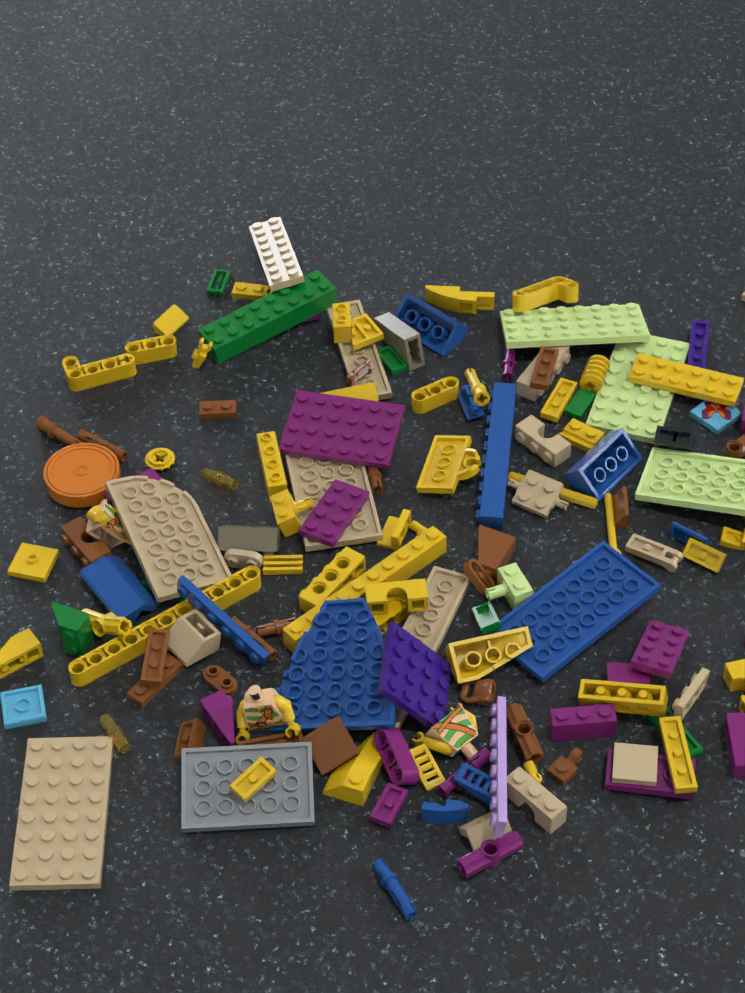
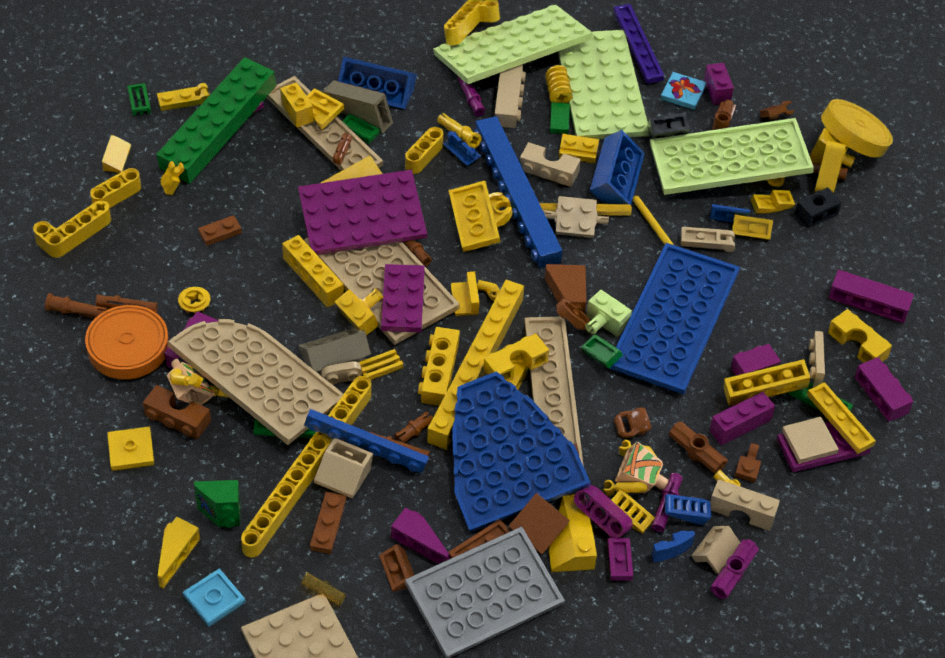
camera: 30 degrees left, 5 degrees up
(108, 623) = (256, 483): yellow piece -> none
(118, 588) = (237, 445): blue slope -> none
(155, 657) = (322, 499): dark orange plate -> none
(219, 679) = (390, 500): dark orange plate -> none
(220, 478) = (267, 299): clear yellow pin -> none
(253, 779) = (491, 583): yellow plate -> none
(264, 709) = (460, 512): torso -> none
(276, 254) = (188, 52): plate -> none
(390, 881) = (663, 629): blue pin -> none
(414, 676) = (581, 430): dark purple plate -> none
(459, 301) = (387, 49): yellow slope -> none
(483, 654) = (619, 390): yellow wedge -> none
(499, 767) = (702, 486): lavender plate -> none
(544, 368) = (516, 93): dark orange plate -> none
(558, 400) = (539, 120): yellow plate -> none
(621, 508) = (656, 205): dark orange slope -> none
(659, 649) = (769, 327): magenta plate -> none
(686, 379) = (643, 66): yellow plate -> none

